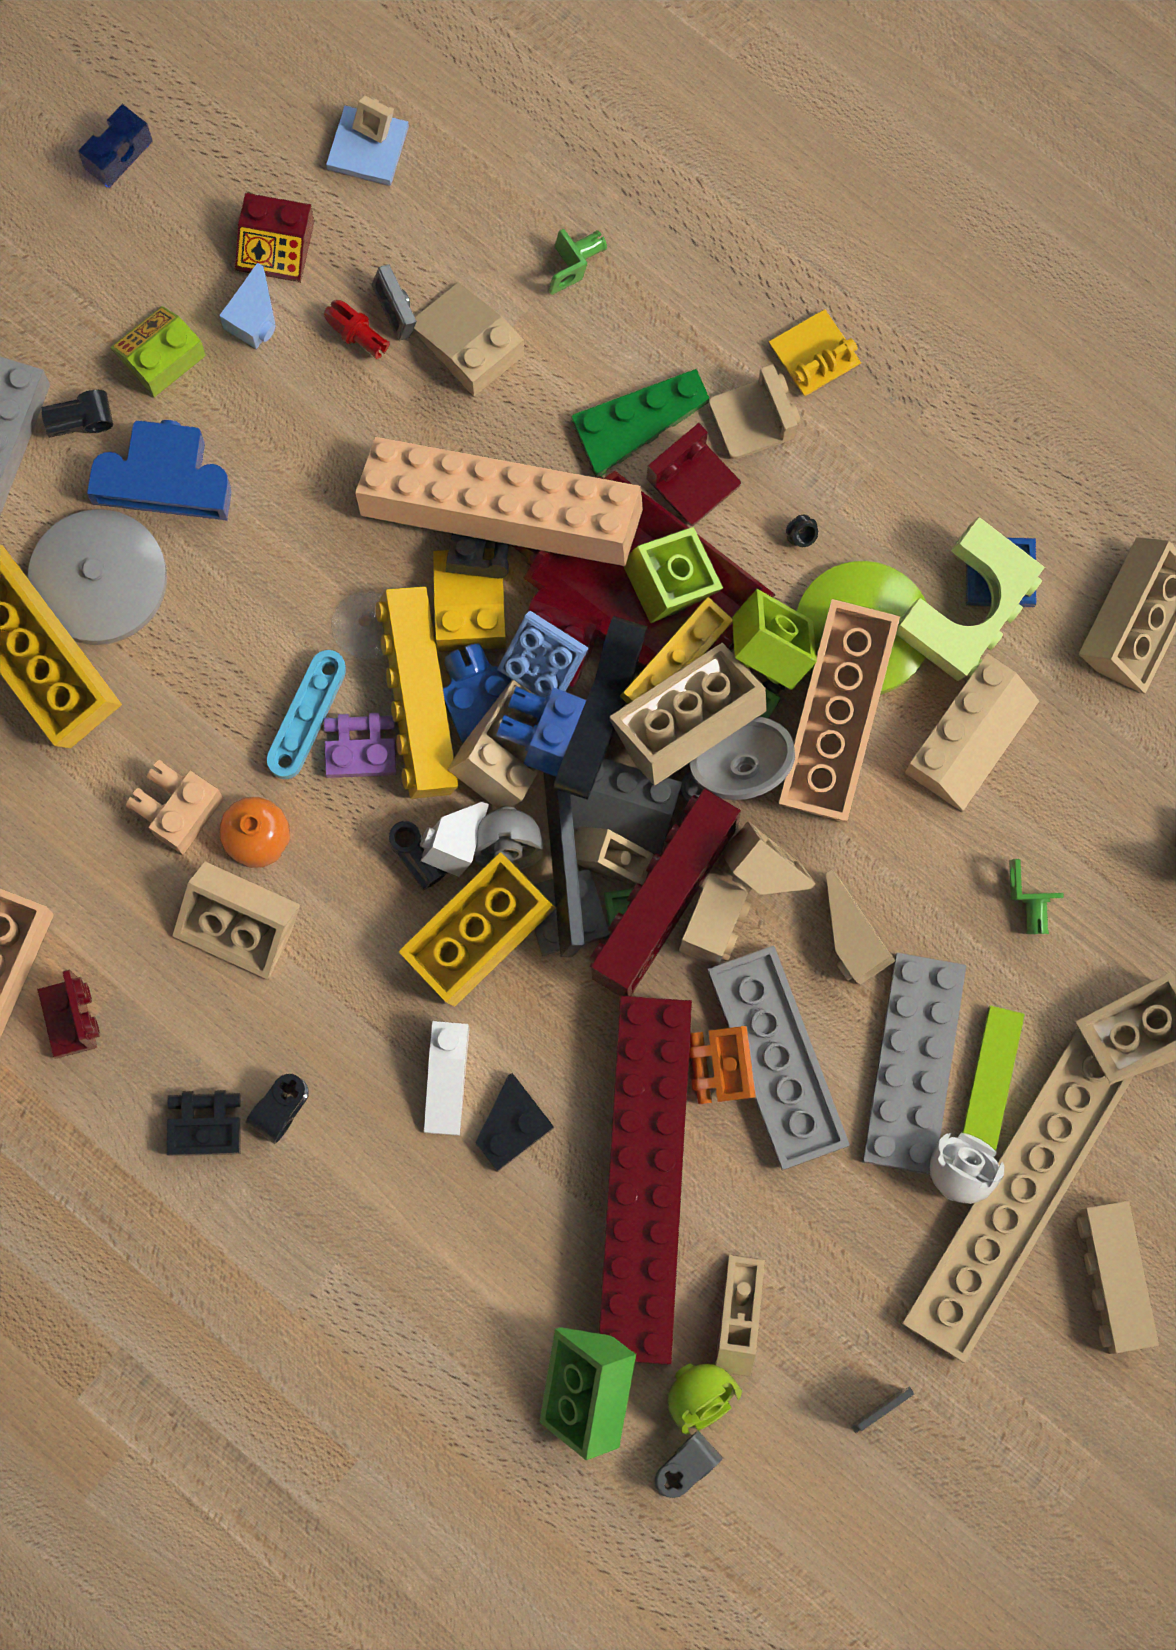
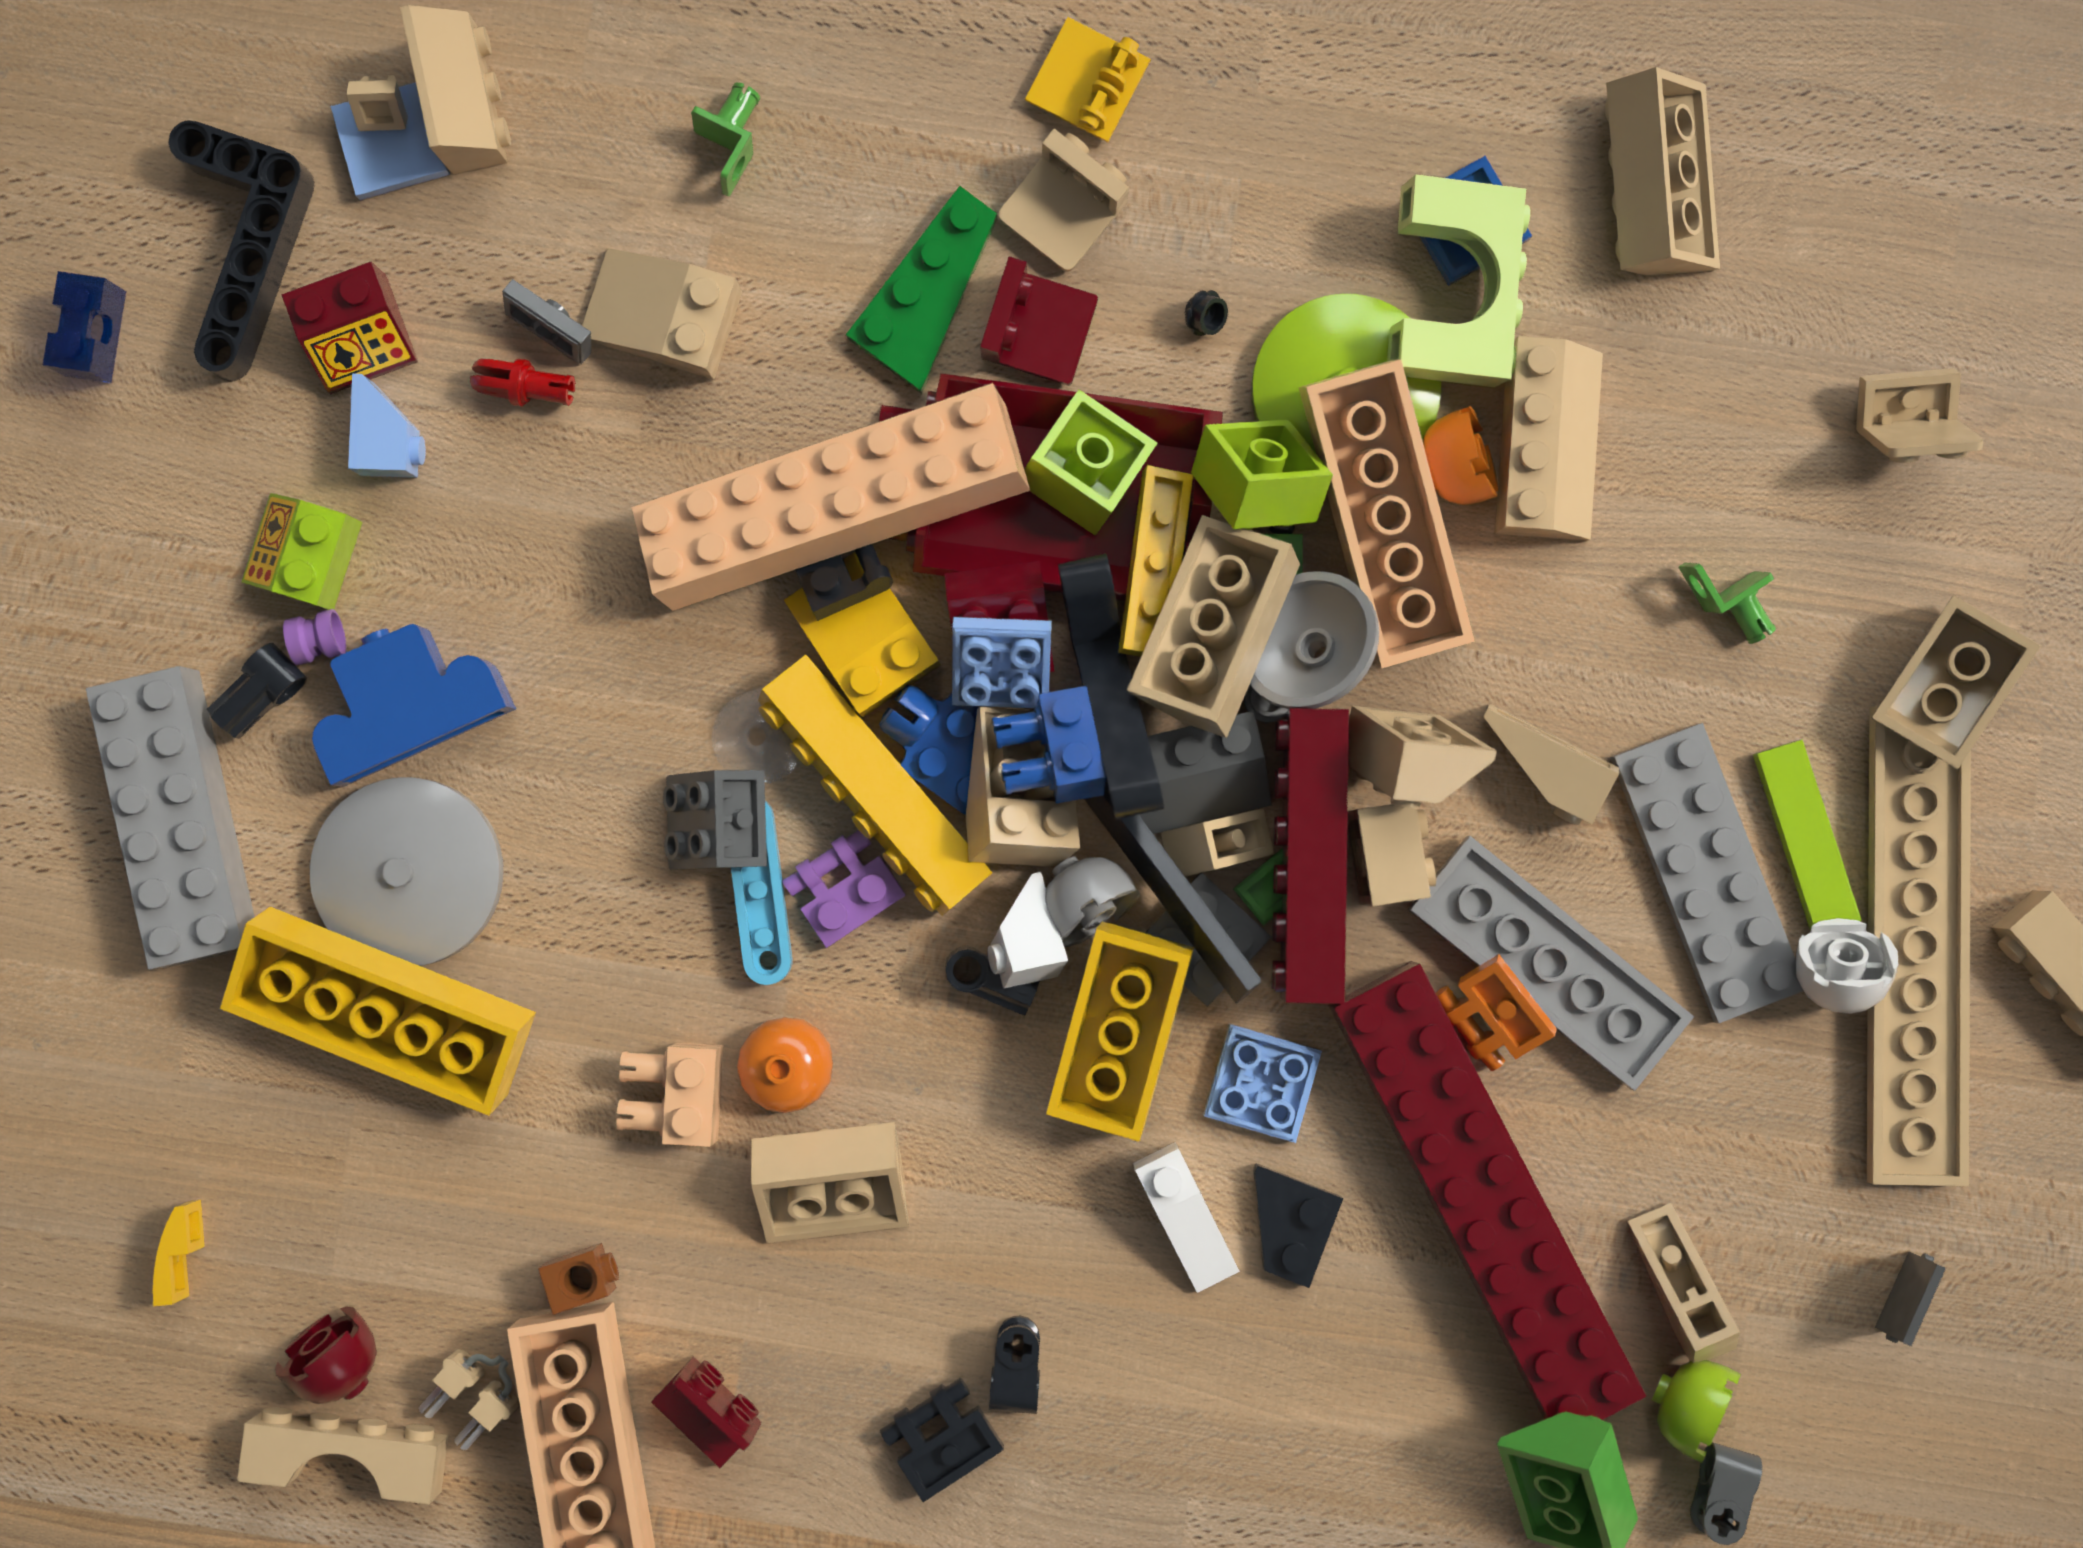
camera: 25 degrees left, 10 degrees up
(32, 873) = (562, 1290): none -> dark orange brick
(133, 403) = (314, 637): none -> medium lavender wheel
(246, 153) = (249, 241): none -> black beam
(308, 653) = (715, 819): none -> dark grey bracket
(426, 137) = (456, 88): none -> tan slope
(547, 1024) = (1262, 1083): none -> light blue tile
(906, 708) = (1459, 459): none -> orange cylinder

